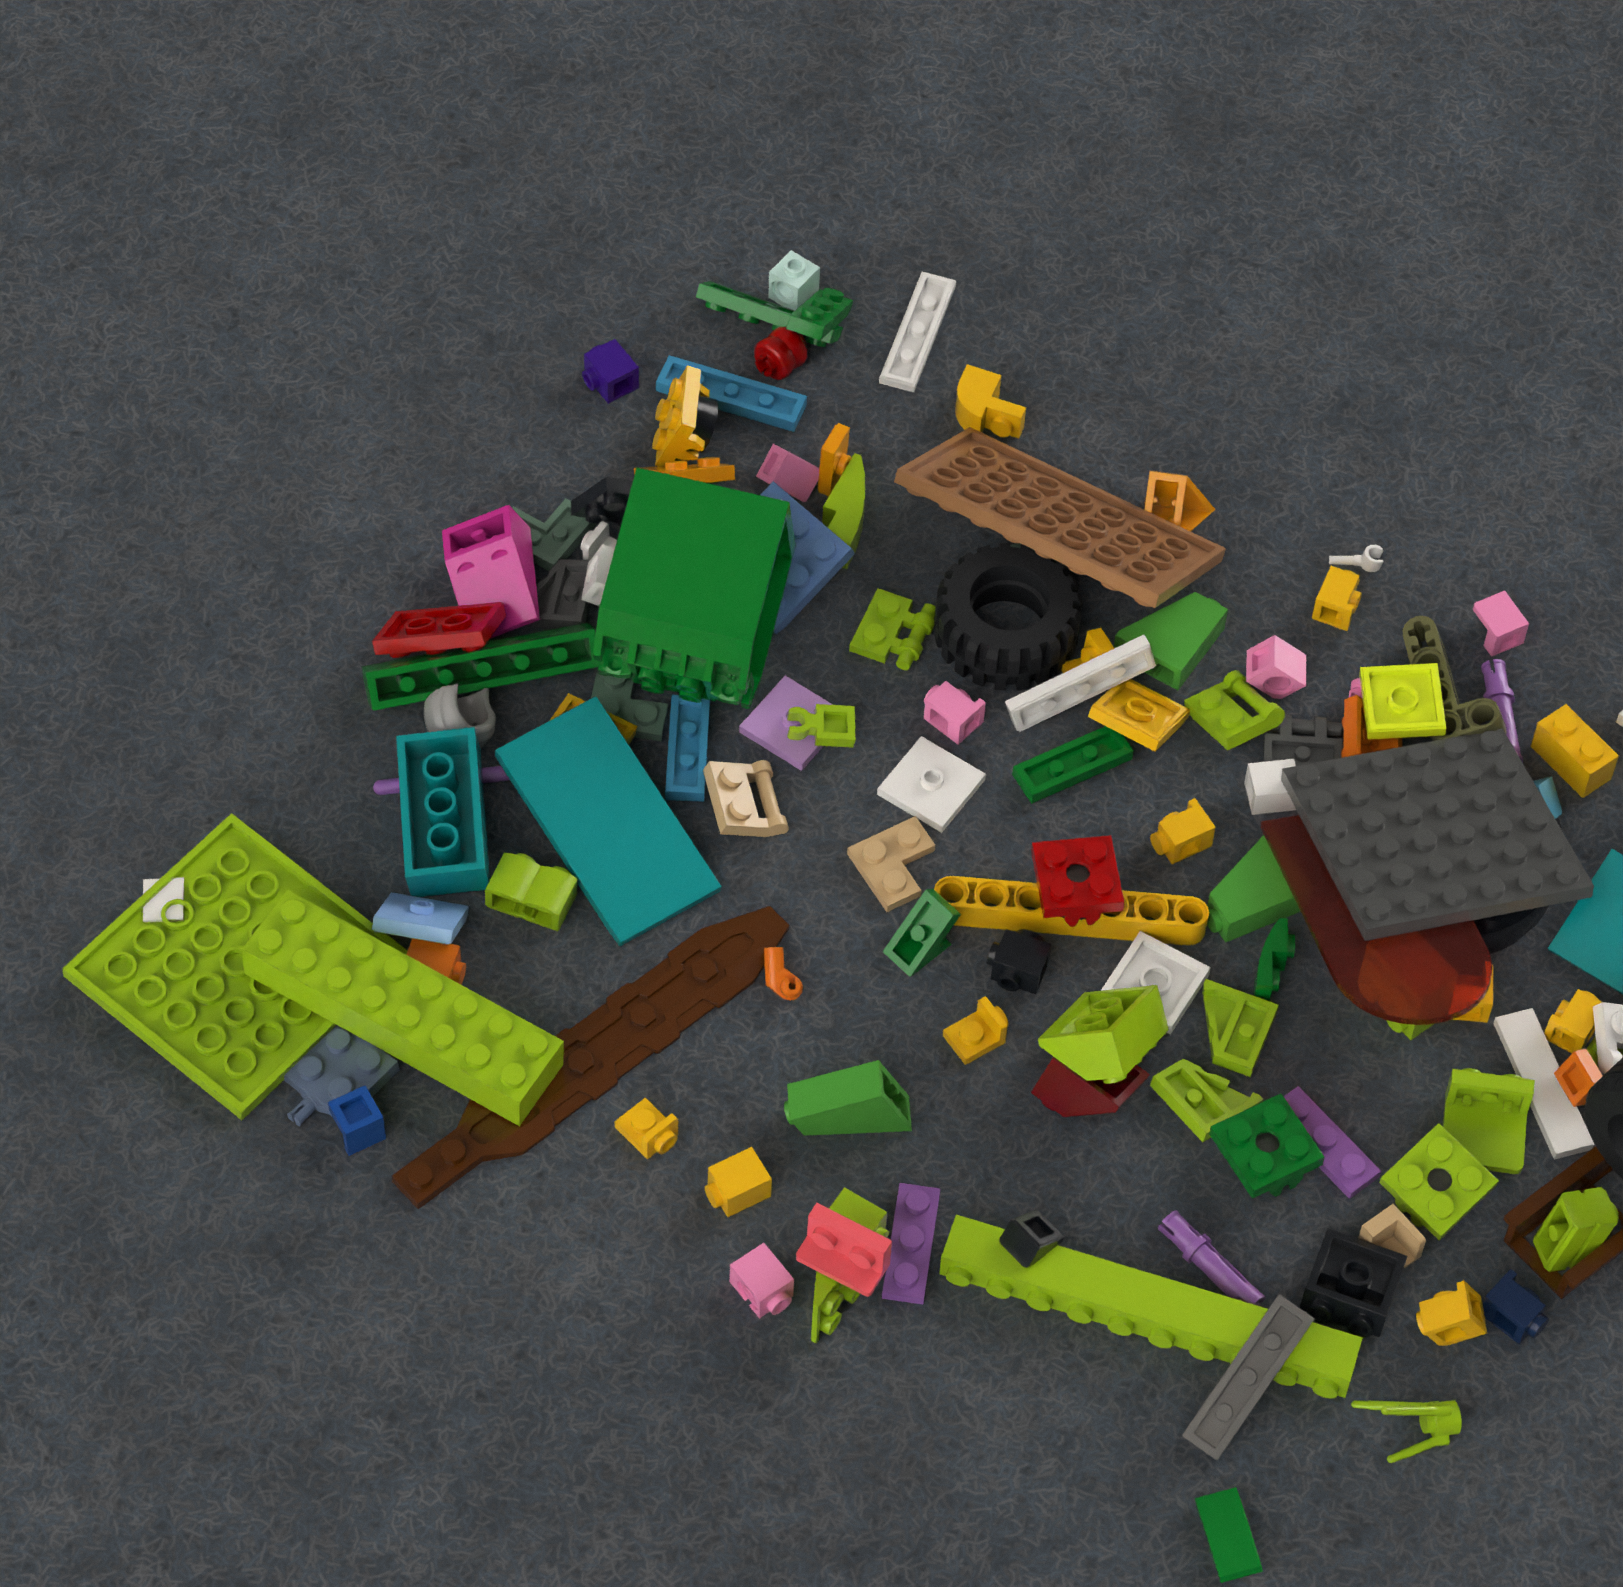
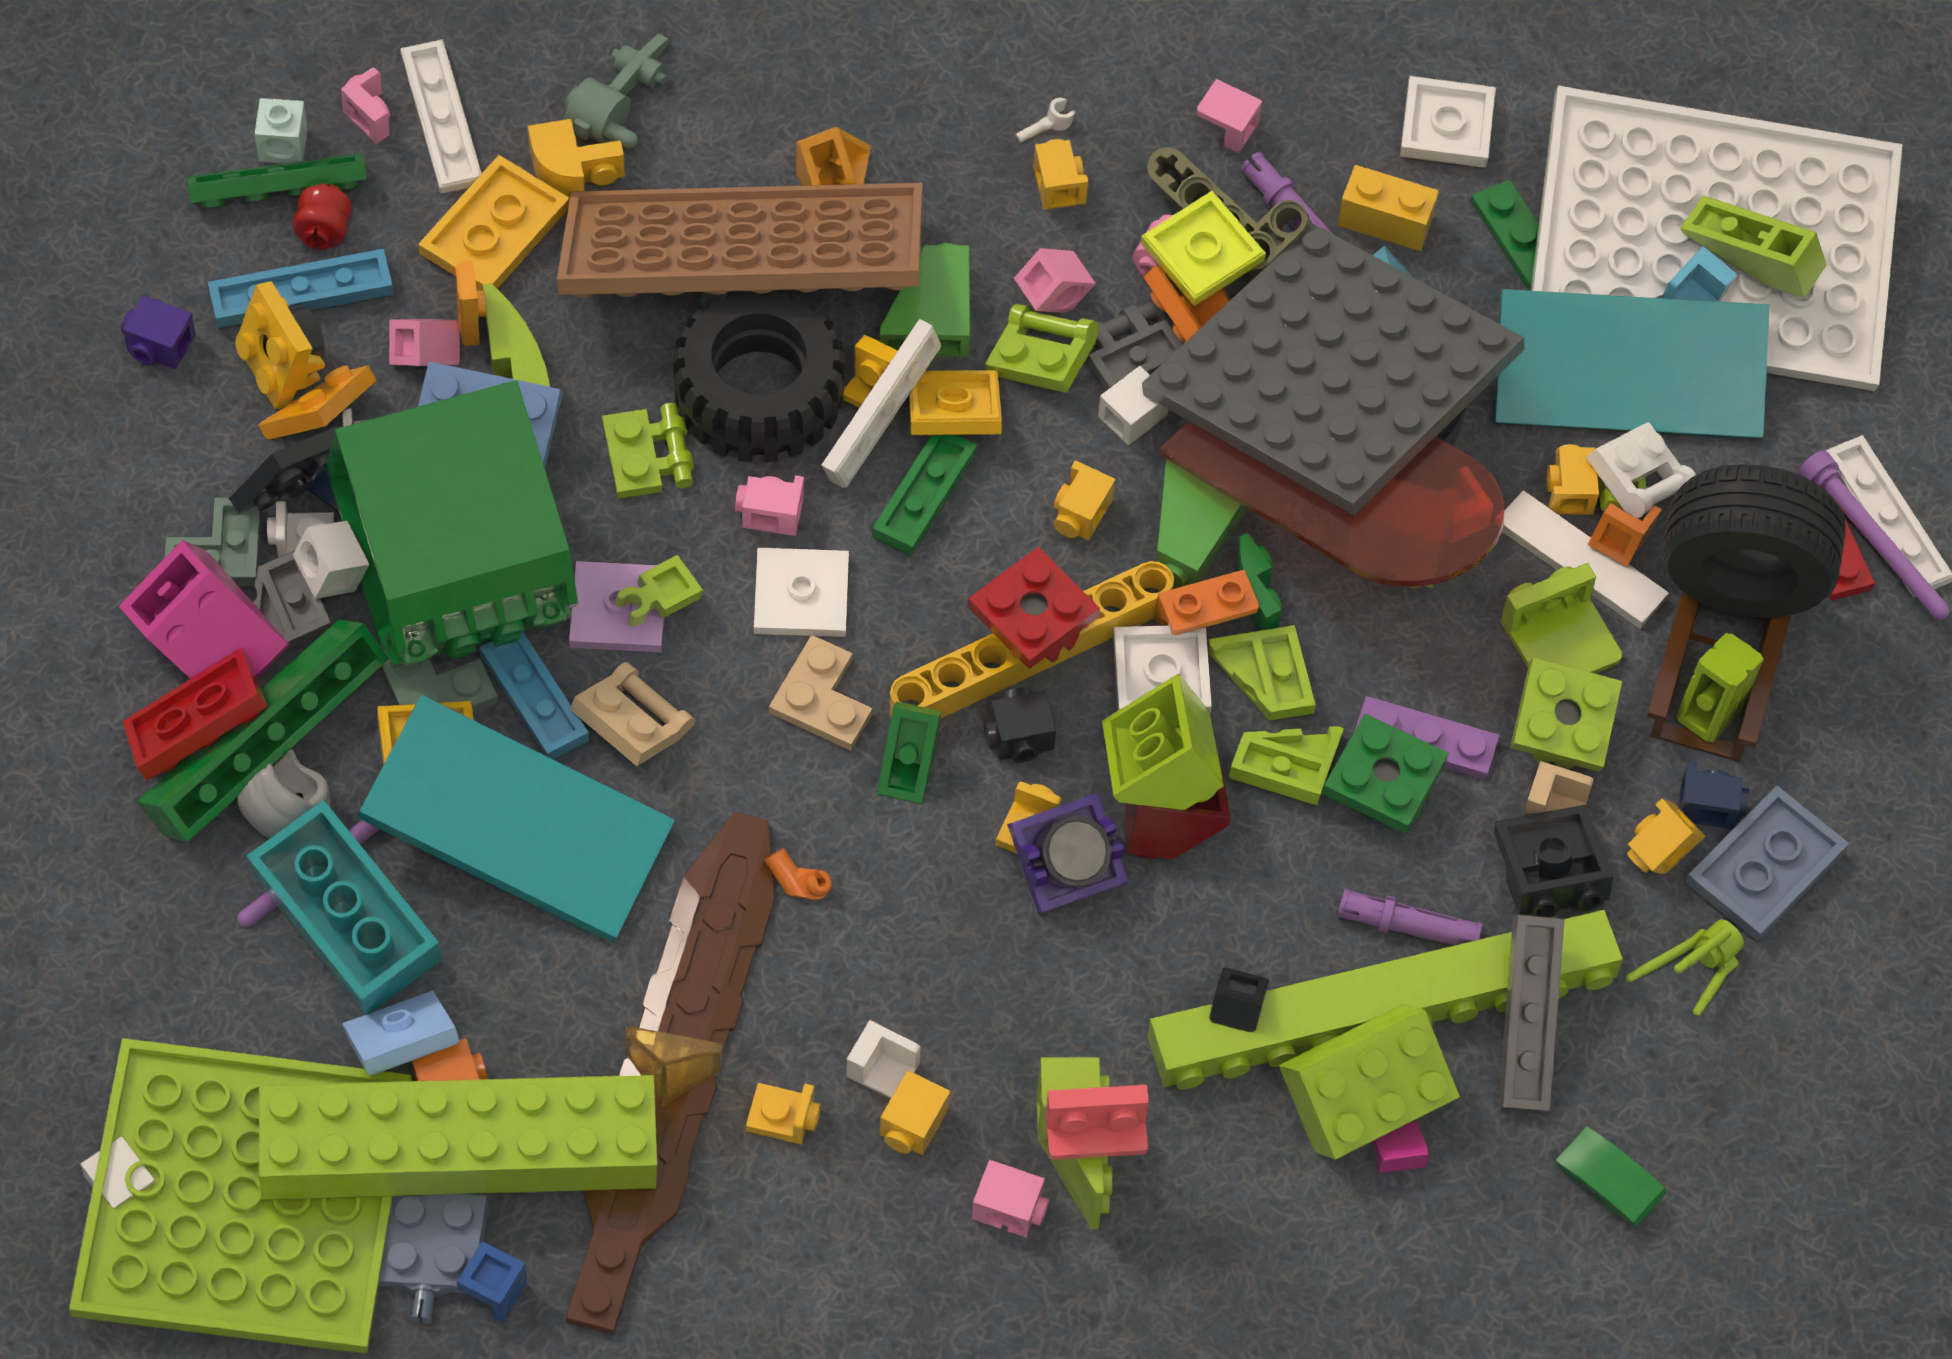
camera: 35 degrees left, 5 degrees up
(531, 890) = (488, 936): lime brick -> none
(591, 1046) = (673, 1059): none -> clear yellow slope
(742, 1128) = (882, 1059): none -> white panel
(820, 313) = (338, 152): green plate -> none
(849, 1102) = (962, 969): bright green slope -> none
(866, 291) = (364, 106): none -> bright pink bracket
(898, 421) = (495, 223): none -> yellow plate
(911, 1243) = (1101, 1035): medium lavender plate -> none
(985, 1067) = (1068, 852): none -> piece
(1033, 384) = (602, 109): none -> sand green piece
(1082, 1418) = (1401, 1149): none -> dark pink slope
(1087, 1353) = (1369, 1081): none -> lime brick
(1220, 950) = (1206, 603): none -> orange bracket
(1525, 1382) = (1767, 863): none -> sand blue plate

